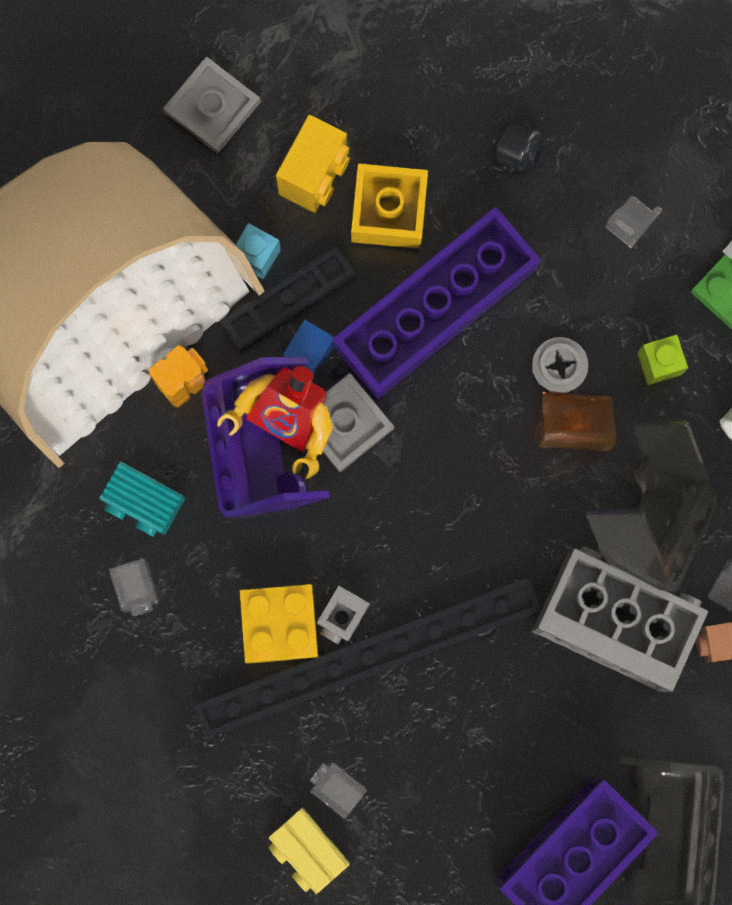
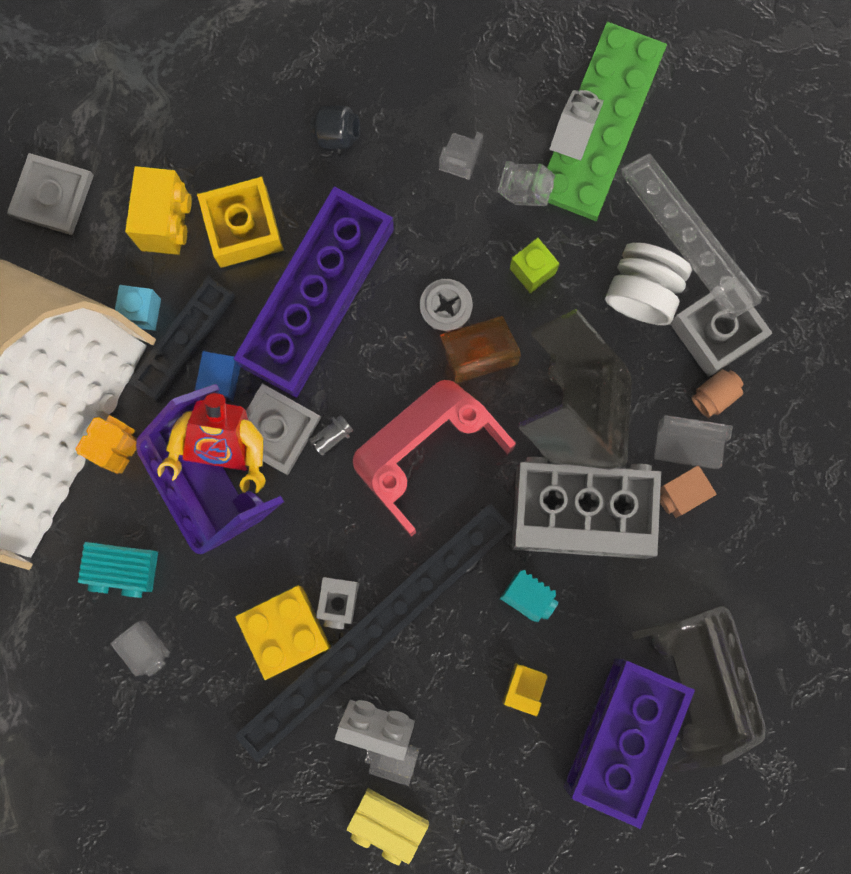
camera: 15 degrees left, 0 degrees up
(333, 752) = (375, 729): none -> light grey plate
(398, 449) = (331, 434): none -> dark grey pin
(437, 489) = (443, 401): none -> coral windscreen
(492, 772) = (525, 689): none -> yellow panel
(532, 683) = (530, 597): none -> teal brick
(686, 276) = (526, 184): none -> clear brick

